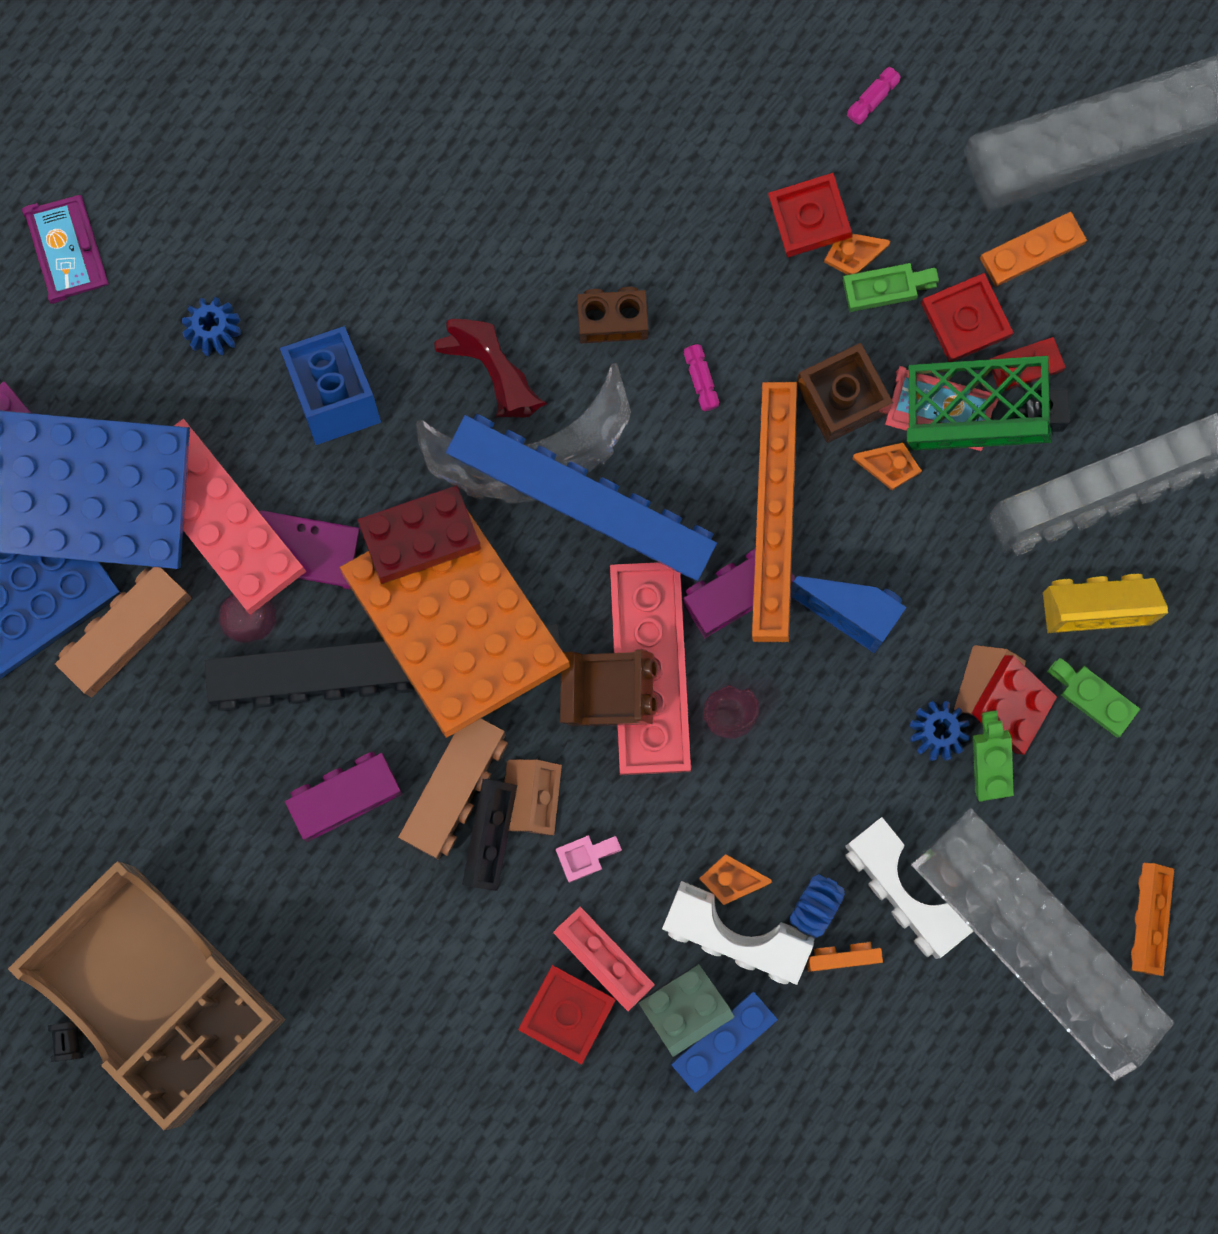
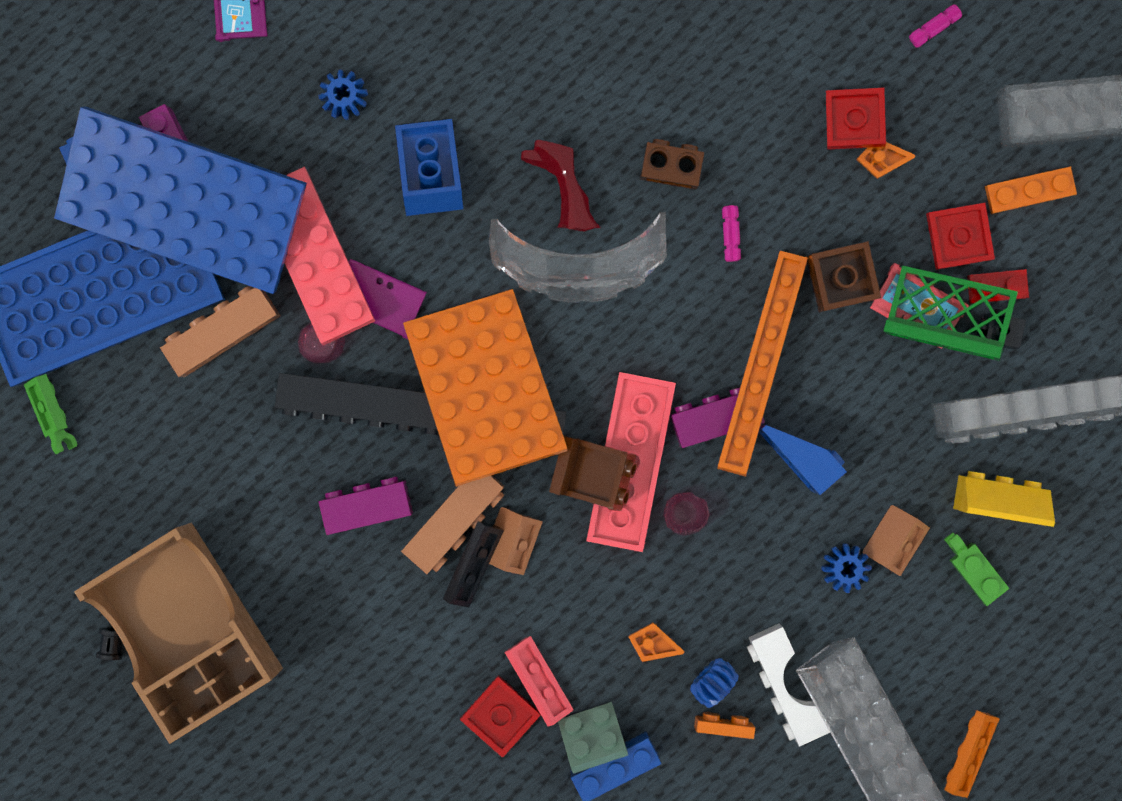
camera: 15 degrees right, 10 degrees up
(419, 534) = (472, 312): dark red plate -> none
(582, 498) = (610, 316): blue brick -> none
(582, 857) = (541, 598): bright pink plate -> none
(778, 952) = (674, 709): white arch -> none
(886, 286) = (901, 193): bright green plate -> none
(889, 464) = (864, 343): orange piece -> none
(993, 760) = (882, 603): bright green plate -> none
(1019, 701) = (910, 563): red plate -> none

